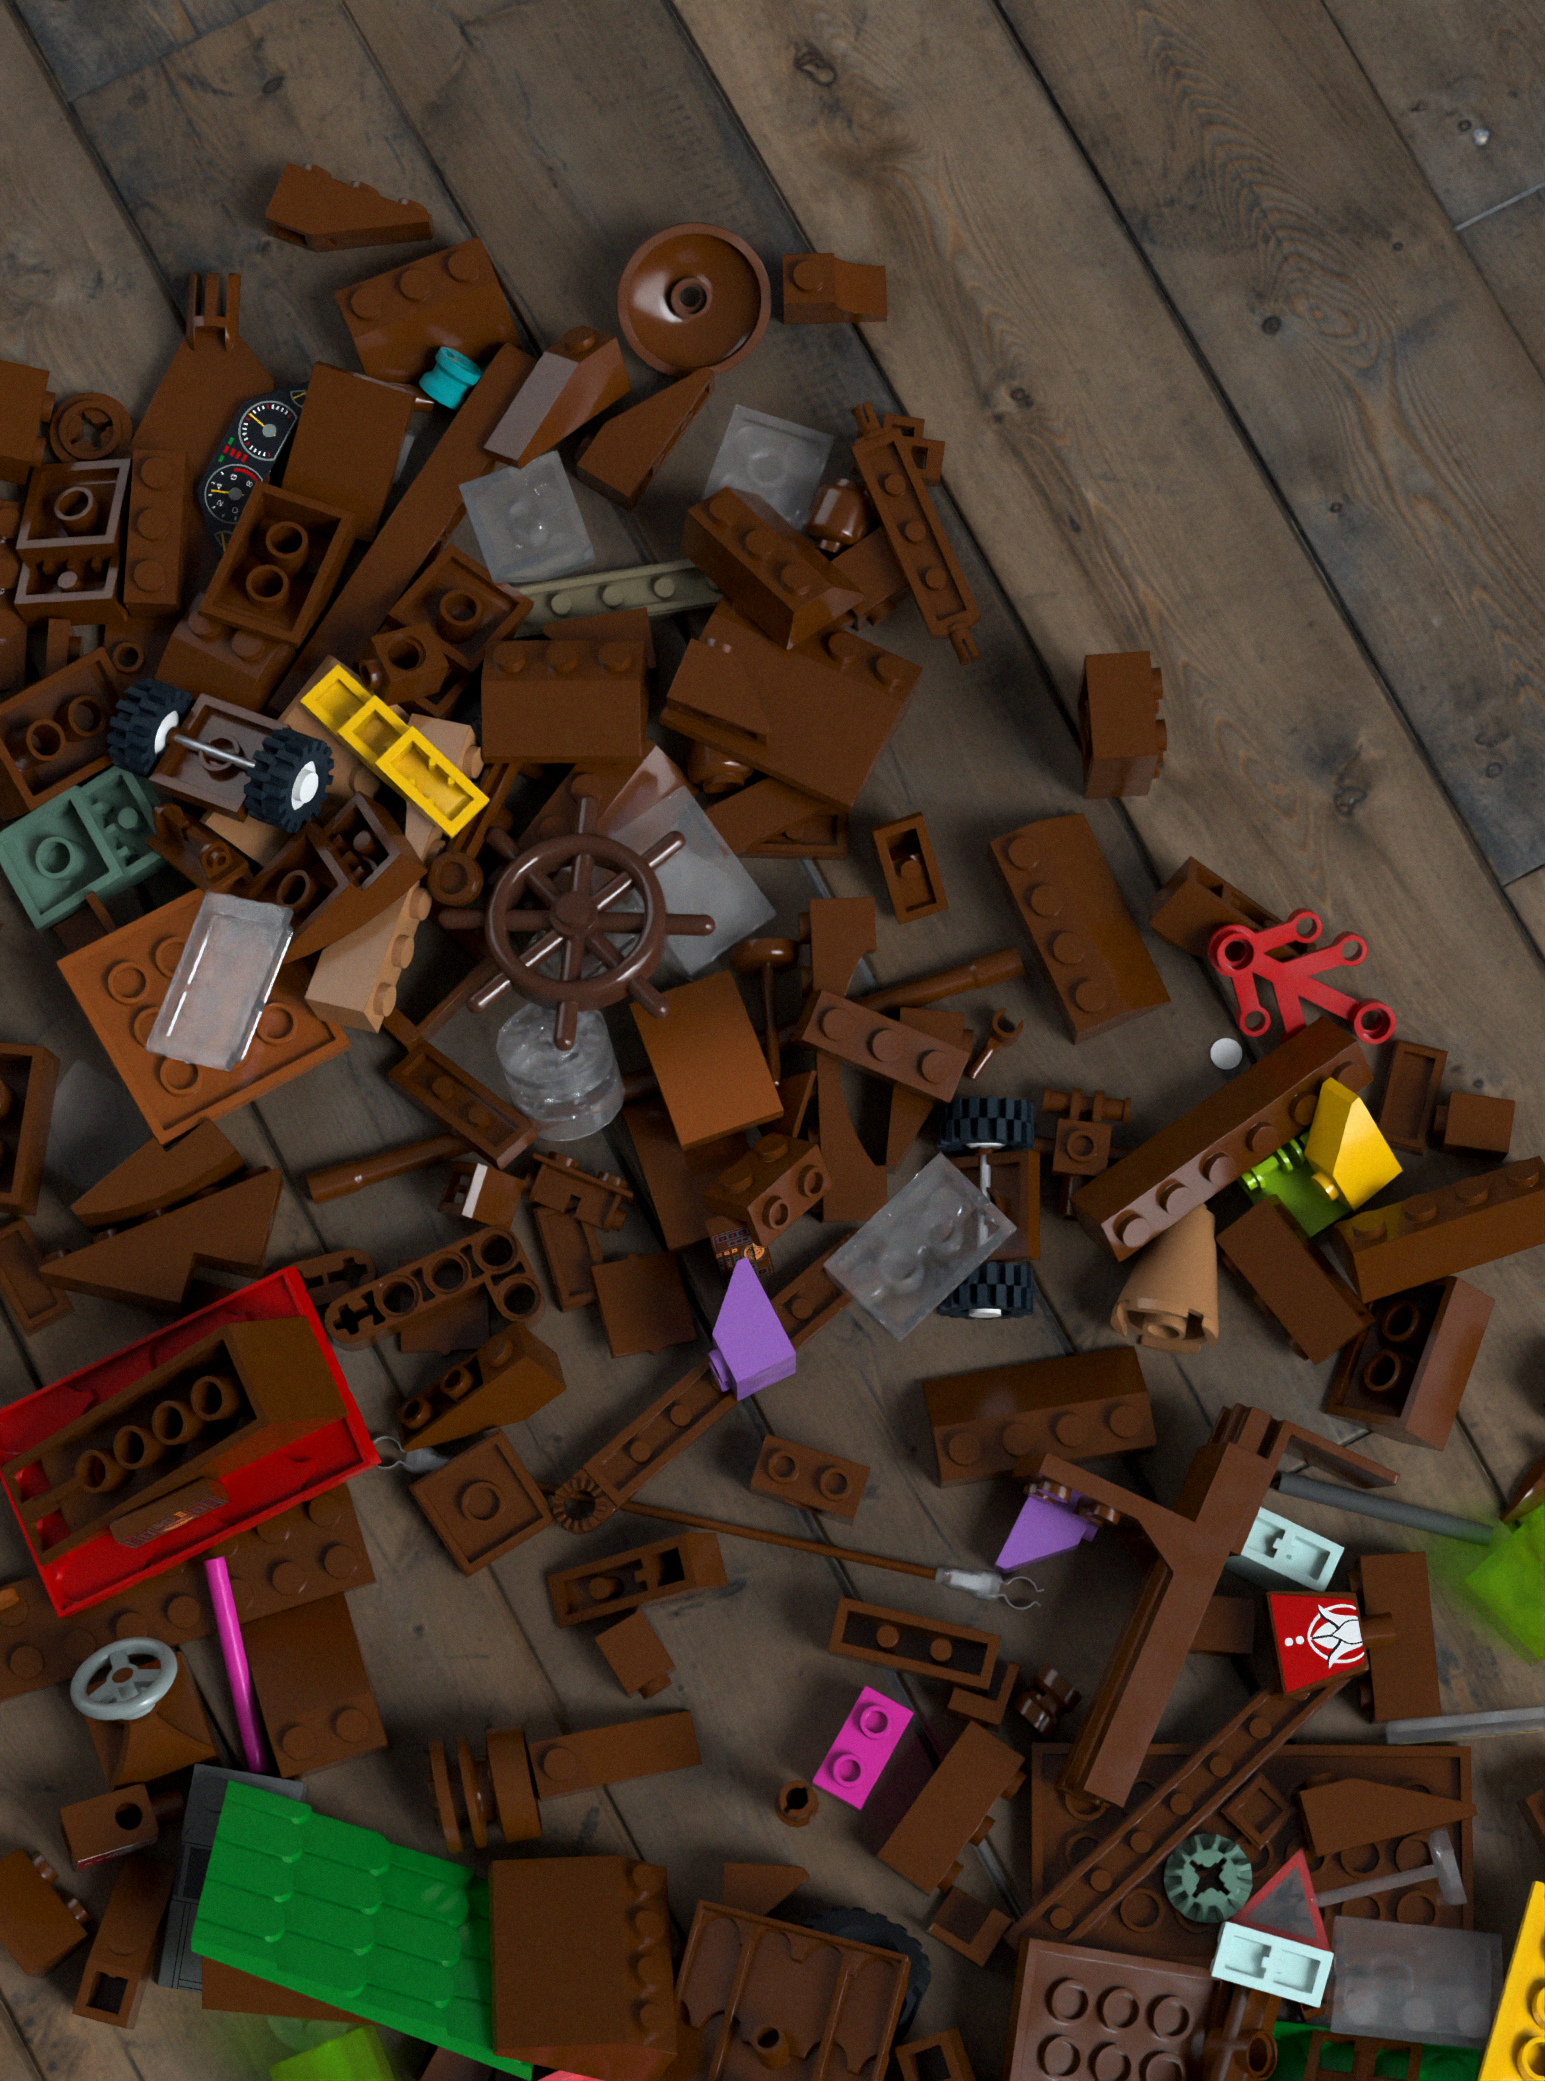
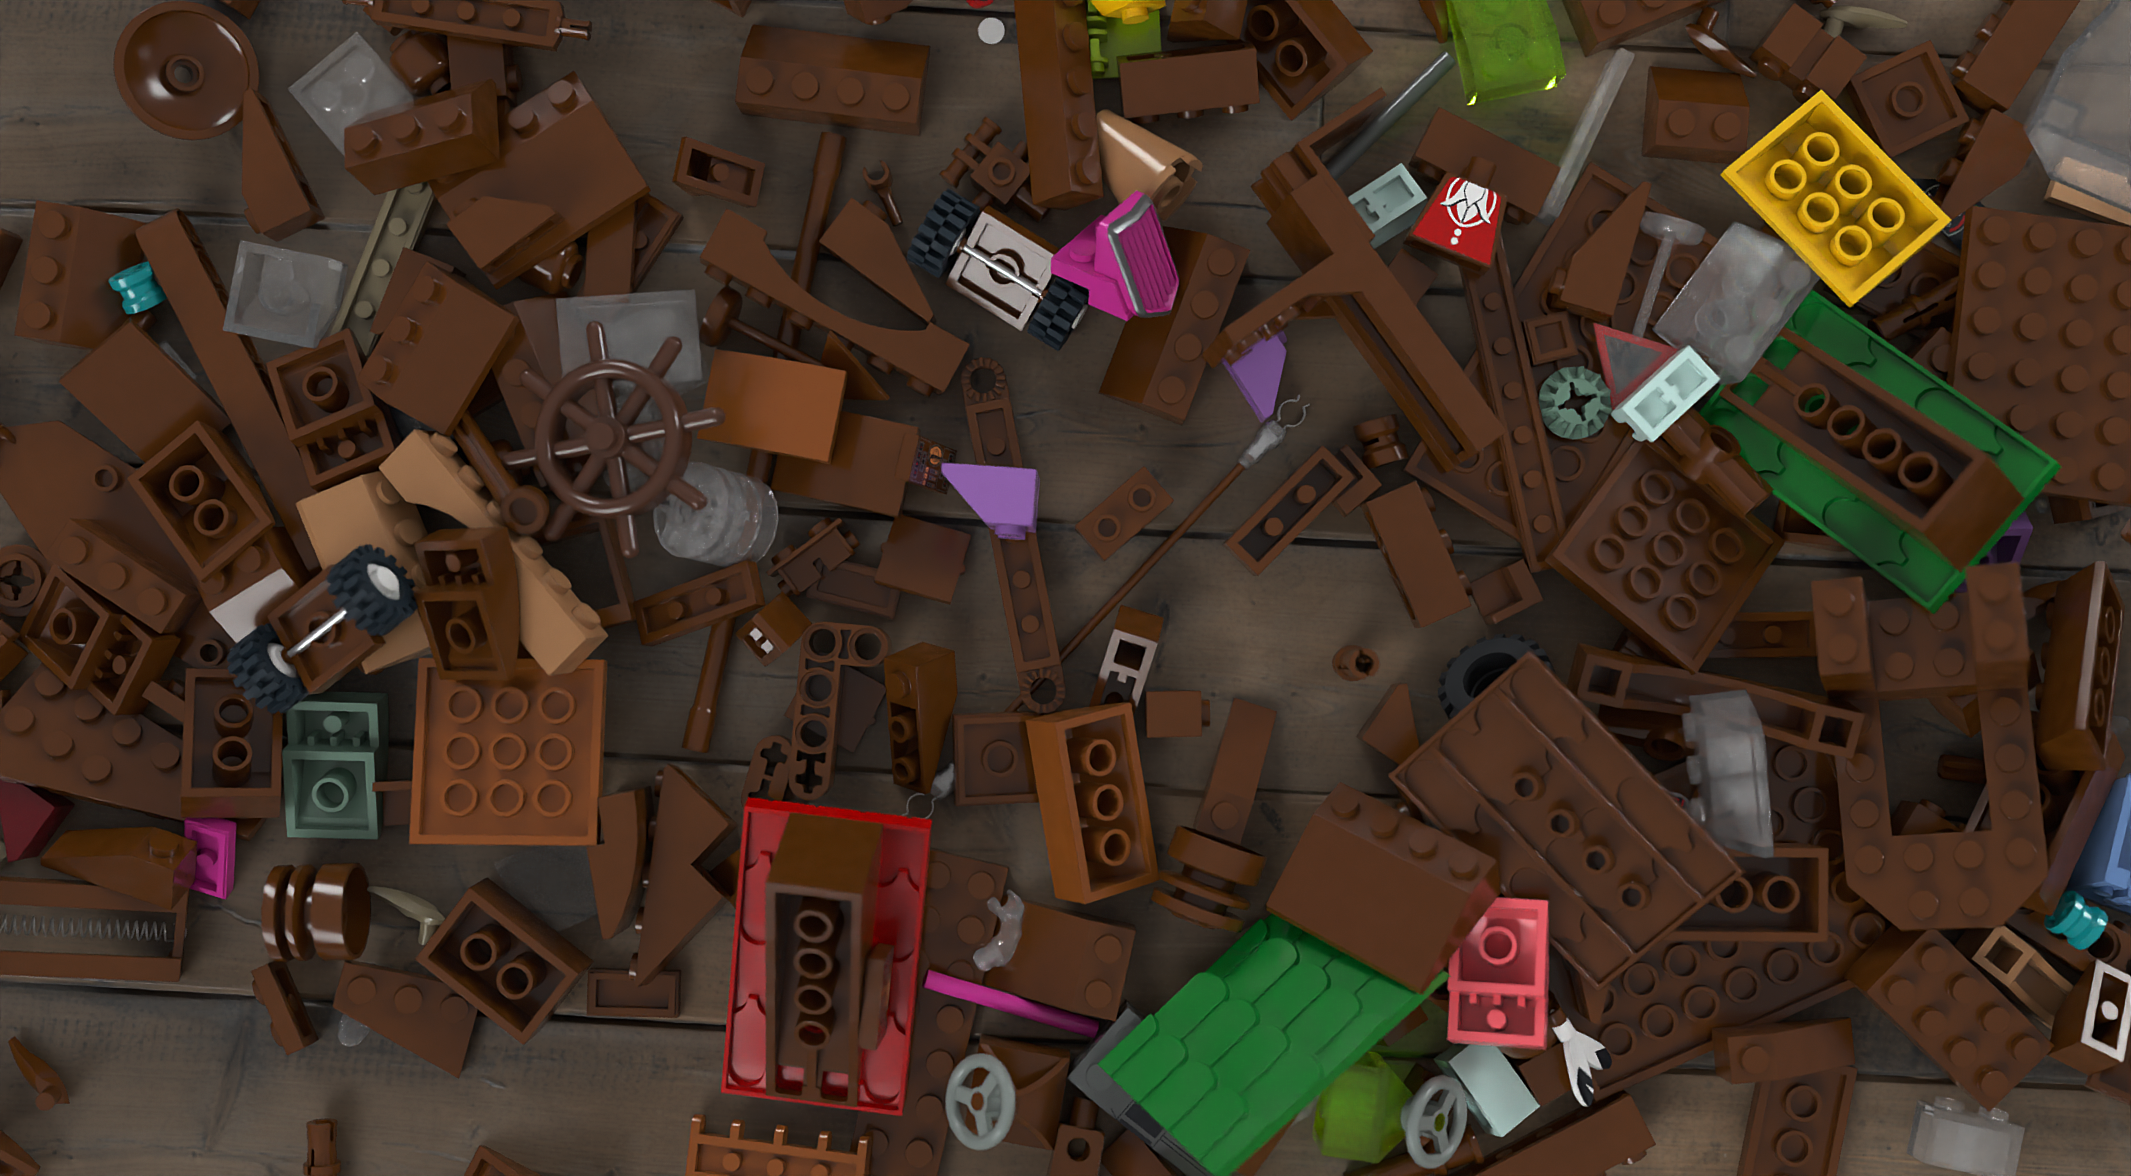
camera: 60 degrees left, 10 degrees up
(192, 848) = (383, 690): reddish brown hinge -> none
(222, 981) = (499, 729): clear piece -> none
(246, 456) = (105, 474): black sticker -> none
(291, 1621) = (1002, 946): none -> clear piece
(394, 751) = (399, 497): yellow slope -> none
(411, 647) = (327, 438): reddish brown brick -> none
(495, 1623) = (1092, 801): none -> dark orange slope
(561, 394) = (199, 210): reddish brown slope -> none
(770, 1186) = (896, 414): reddish brown bracket -> none
(862, 1749) = (1338, 592): dark pink brick -> none
(880, 1047) = (842, 271): reddish brown brick -> none
(918, 1248) = (1008, 333): clear slope -> none
(1062, 1321) = (1123, 261): none -> dark pink piece

